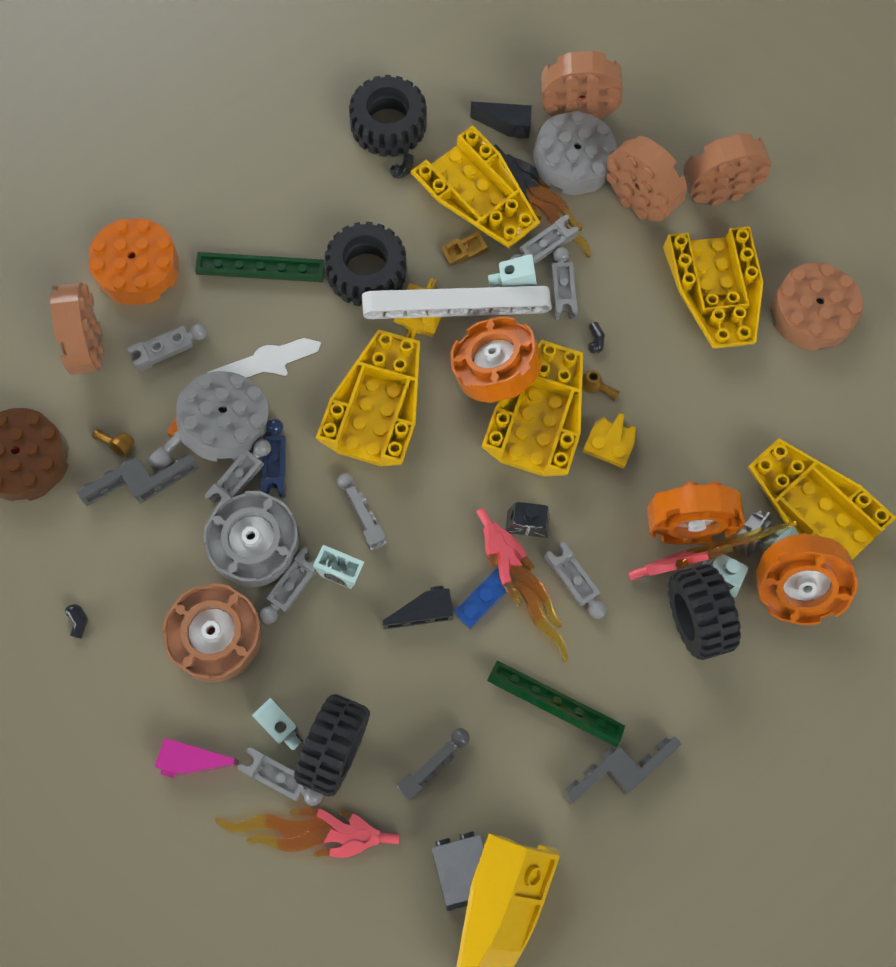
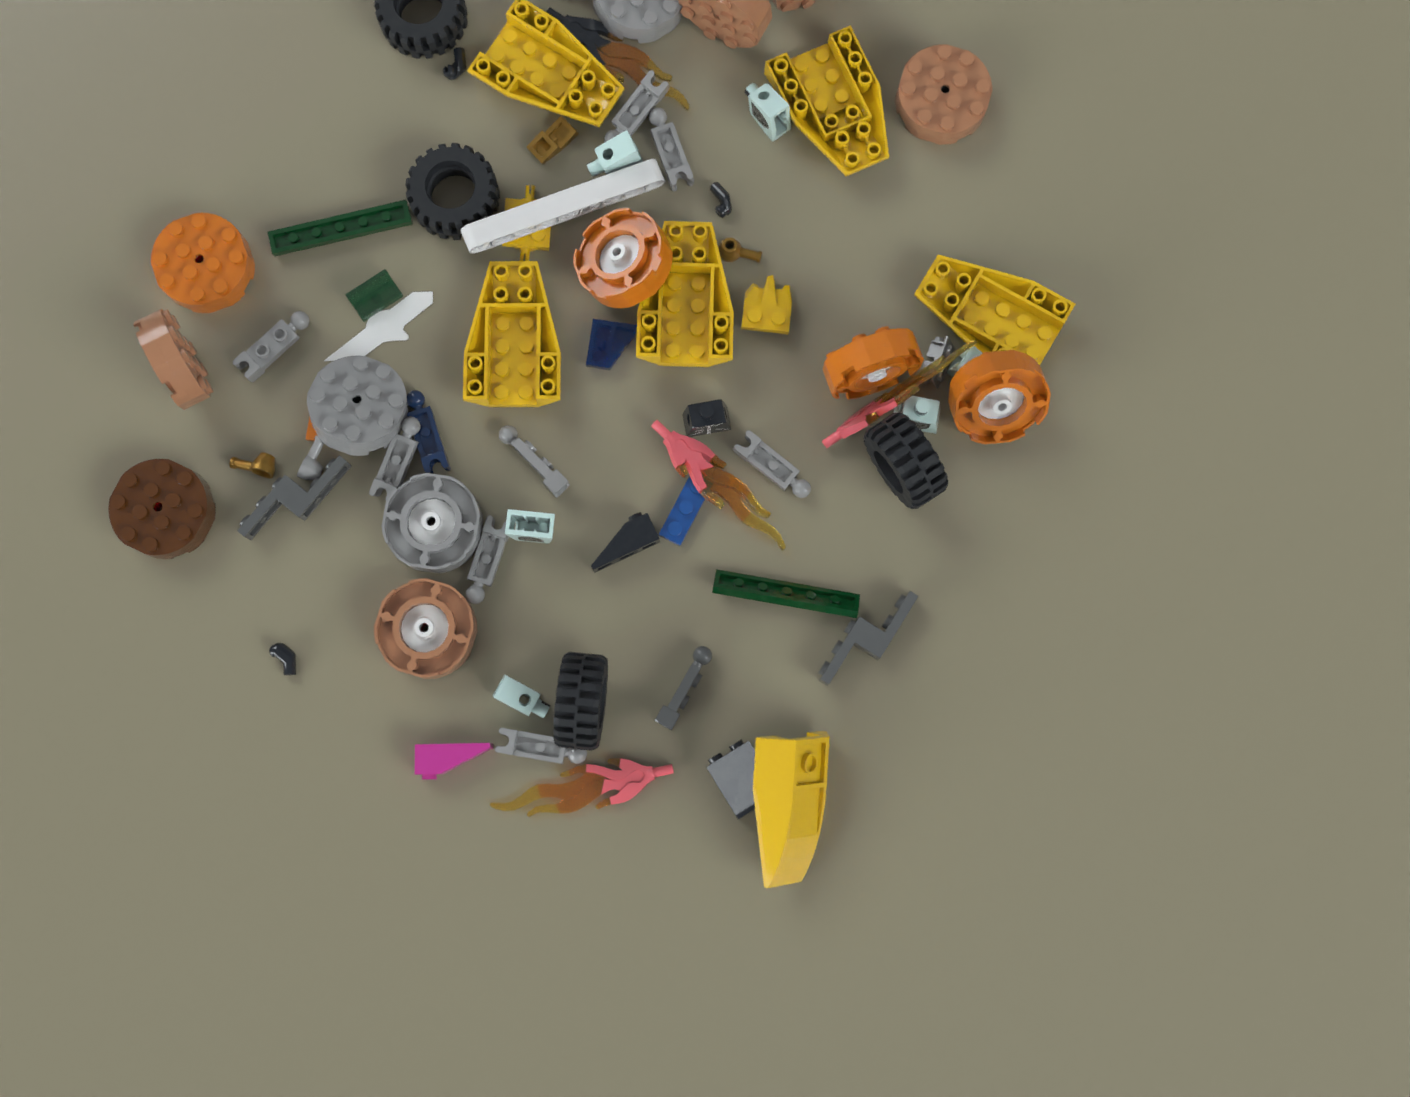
camera: 15 degrees left, 10 degrees up
(269, 329) = (374, 295): none -> clear green panel
(460, 429) = (608, 342): none -> clear blue wing
(659, 276) = (769, 110): none -> light aqua torso

